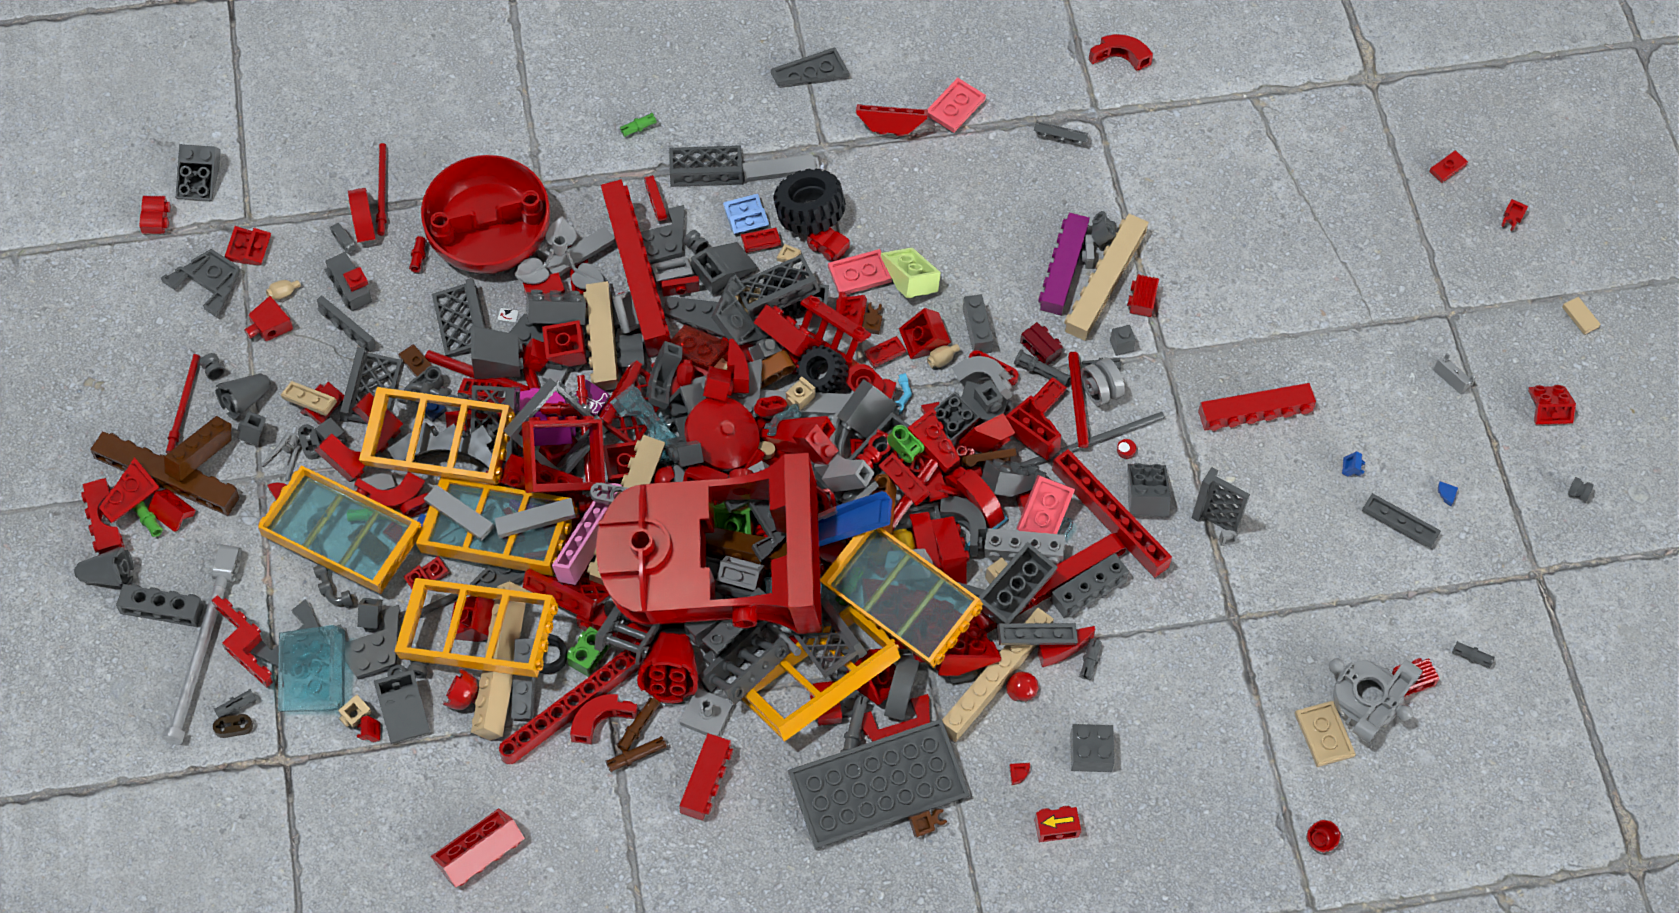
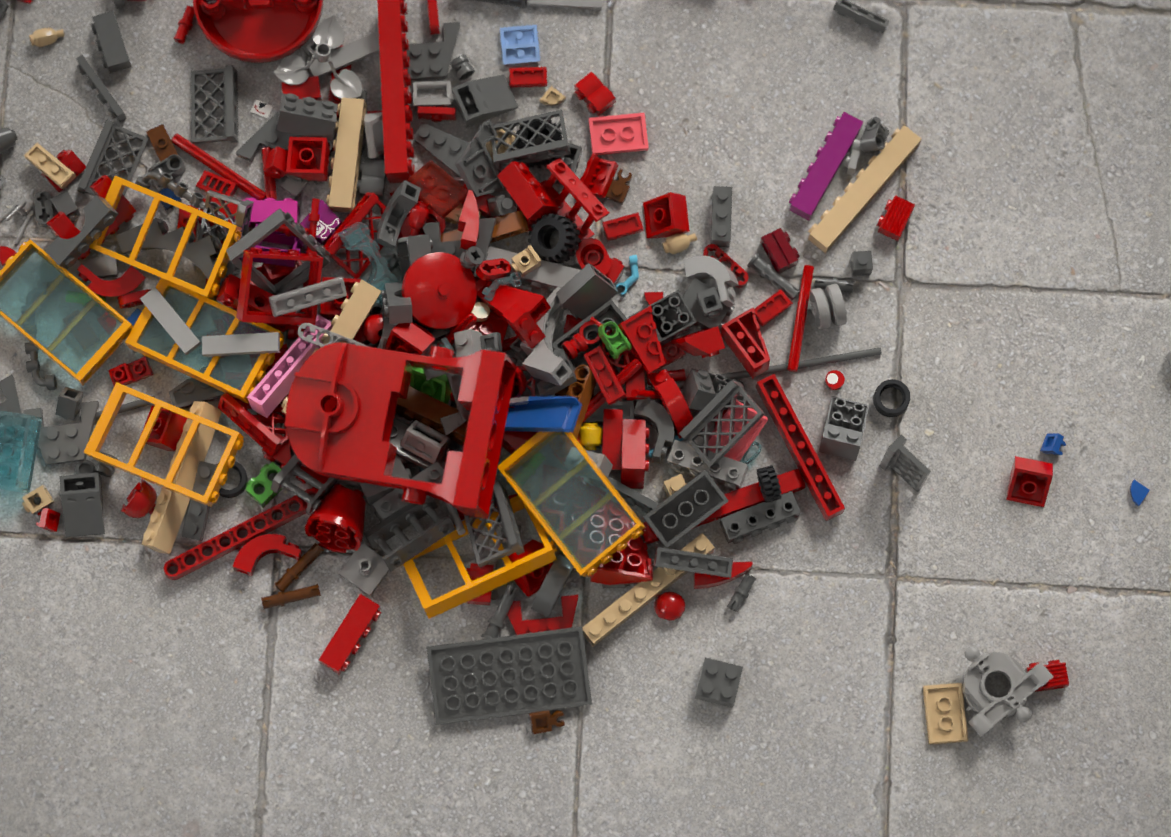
camera: 10 degrees right, 15 degrees up
(268, 321) = (25, 70): red torso -> none
(355, 279) = (117, 44): red plate -> none
(367, 428) = (97, 217): none -> dark grey arch
(478, 847) = (126, 657): slope -> none
(495, 353) = (238, 155): dark grey slope -> none
(593, 459) = (307, 296): none -> light grey tile
(718, 383) = (445, 239): red brick -> none
(747, 397) = (471, 257): none -> dark grey wheel
(805, 187) = (586, 67): black tyre -> none
(911, 272) = (668, 145): yellowish green slope -> none
(970, 460) = (695, 362): reddish brown plate -> none
(1017, 494) = (711, 412): none -> dark grey fence
(1018, 772) = (645, 690): red tile -> none
(1057, 824) = (666, 749): red brick -> none
(1092, 547) = (769, 483): none -> black tyre
(1185, 466) = (891, 383): none -> black tyre
(1228, 537) = (909, 495): light grey tile -> none
(1257, 406) = (975, 363): red brick -> none
(1323, 836) = (912, 816): red hair -> none
(1341, 502) = (1029, 481): none -> red slope
(1401, 520) = (1083, 513): dark grey plate -> none
(1473, 654) = (1111, 665): dark grey pin -> none

